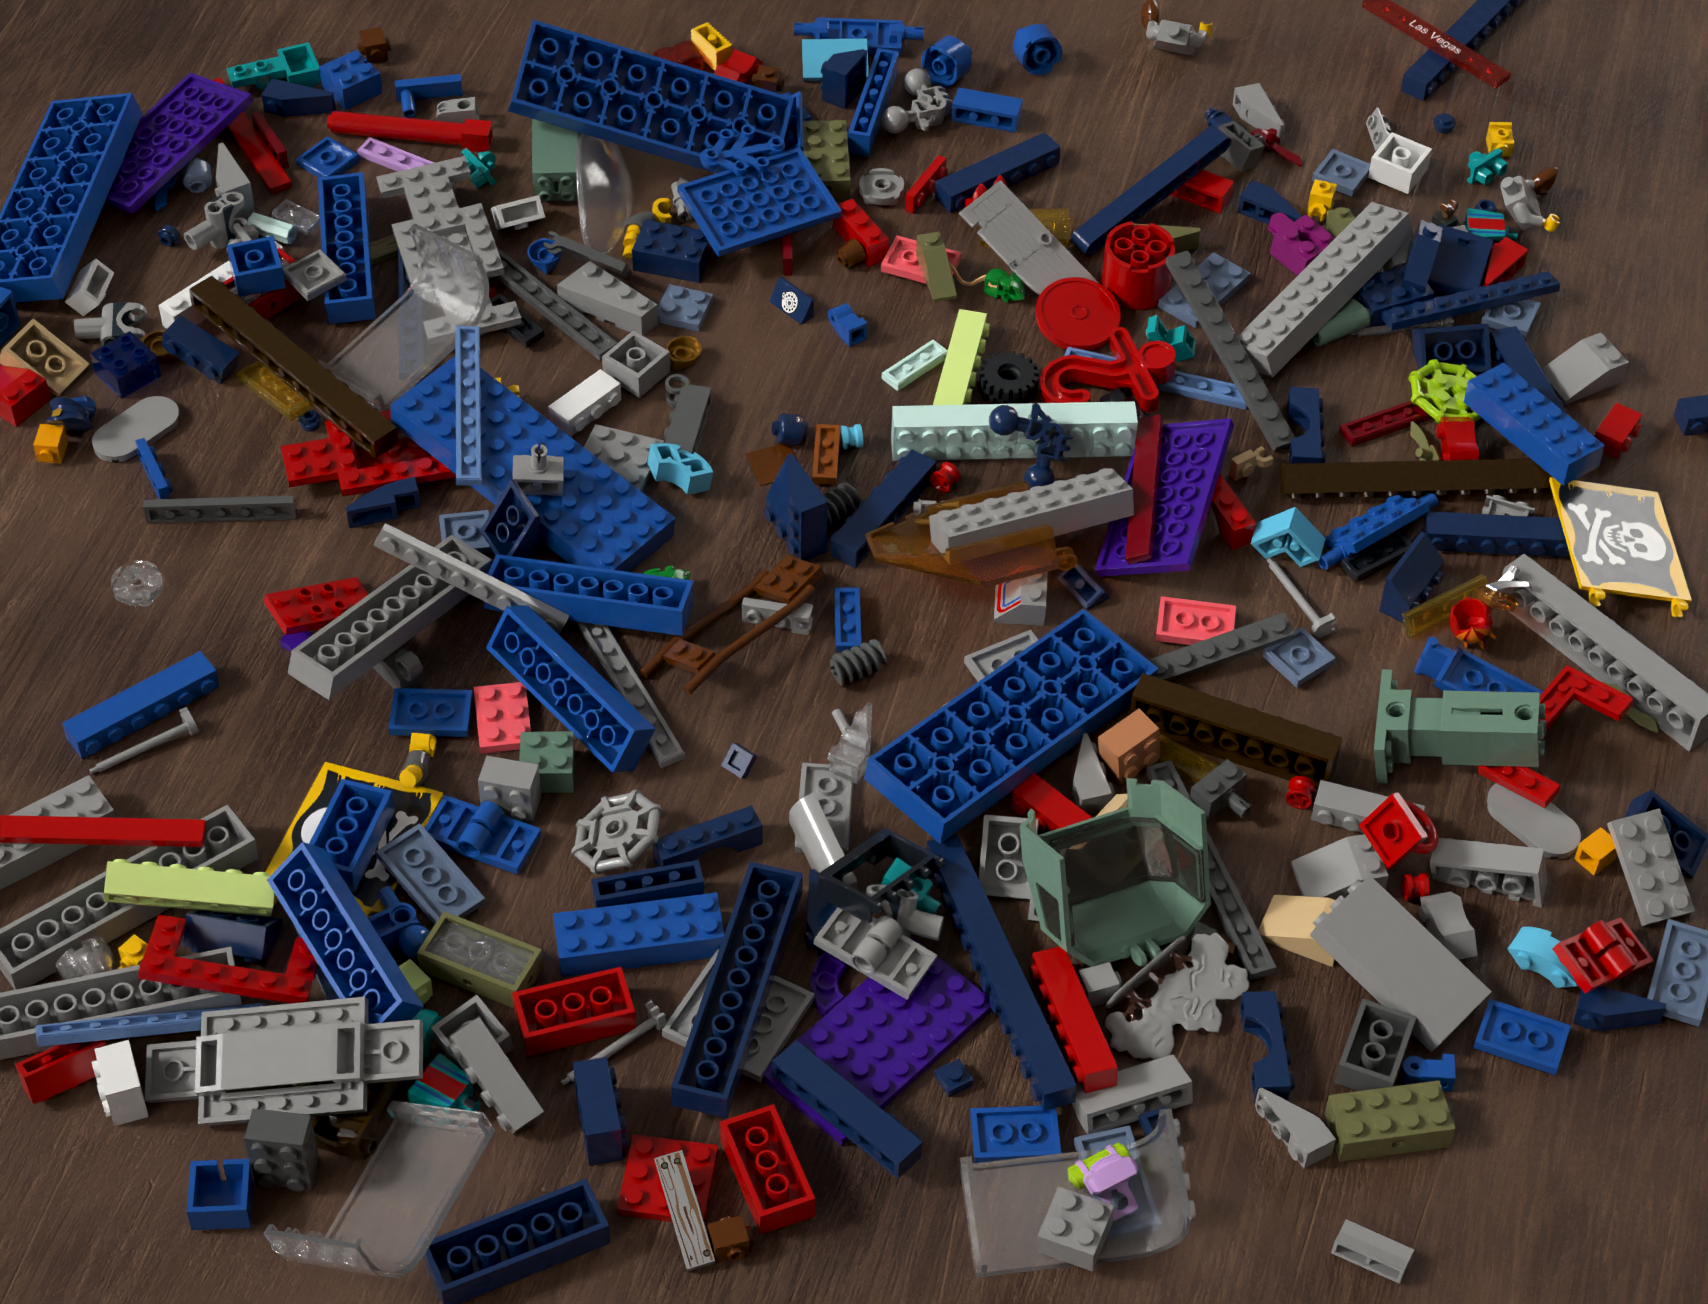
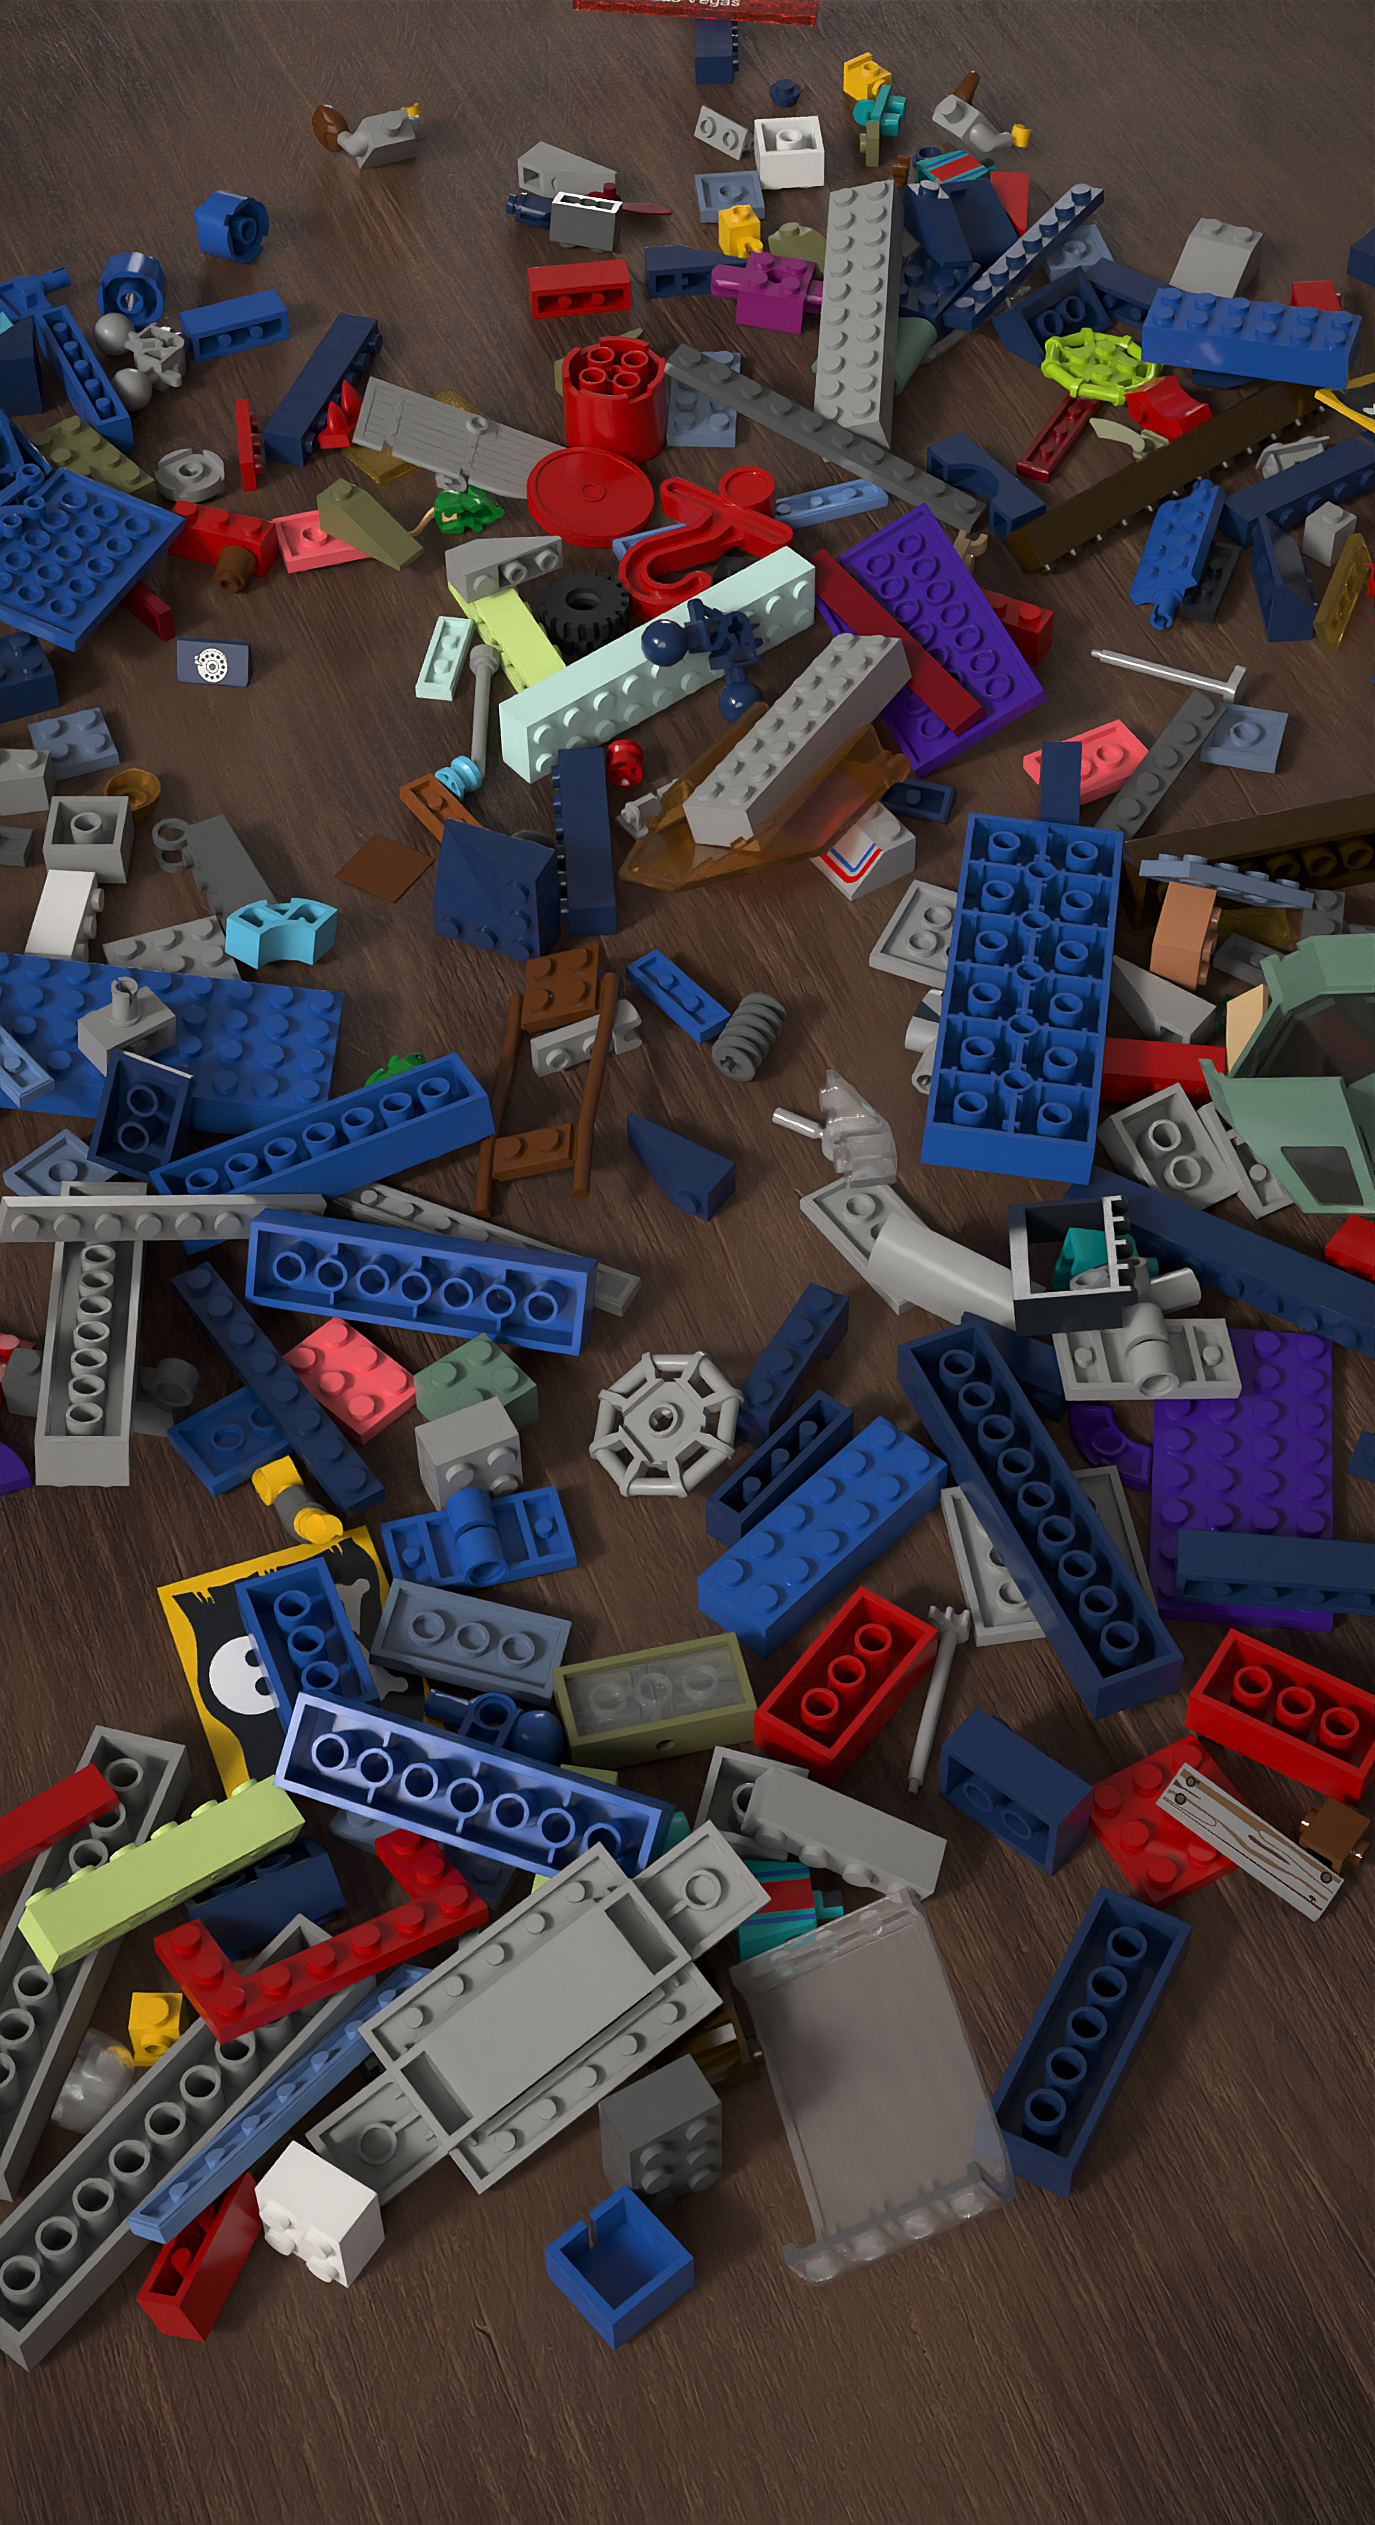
camera: 35 degrees left, 0 degrees up
(458, 700) = (278, 1390): none -> dark blue plate
(739, 760) = (722, 1242): plate -> none
(758, 715) = (685, 1171): none -> dark blue slope
(790, 429) = (371, 812): dark blue head -> none
(846, 322) = (314, 653): blue leg -> none
(929, 380) = (483, 663): none -> light grey piece
(976, 326) = (500, 563): none -> light grey slope
(1143, 625) = (1060, 782): none -> dark blue slope
(1152, 189) = (540, 314): dark blue beam -> none
(1179, 338) = (716, 467): teal brick -> none
(1181, 732) = (1250, 888): none -> sand blue plate
(1290, 534) = (1099, 604): medium azure brick -> none
(1459, 182) = (870, 143): none -> olive plate
(1474, 563) = (1327, 533): none -> light grey brick

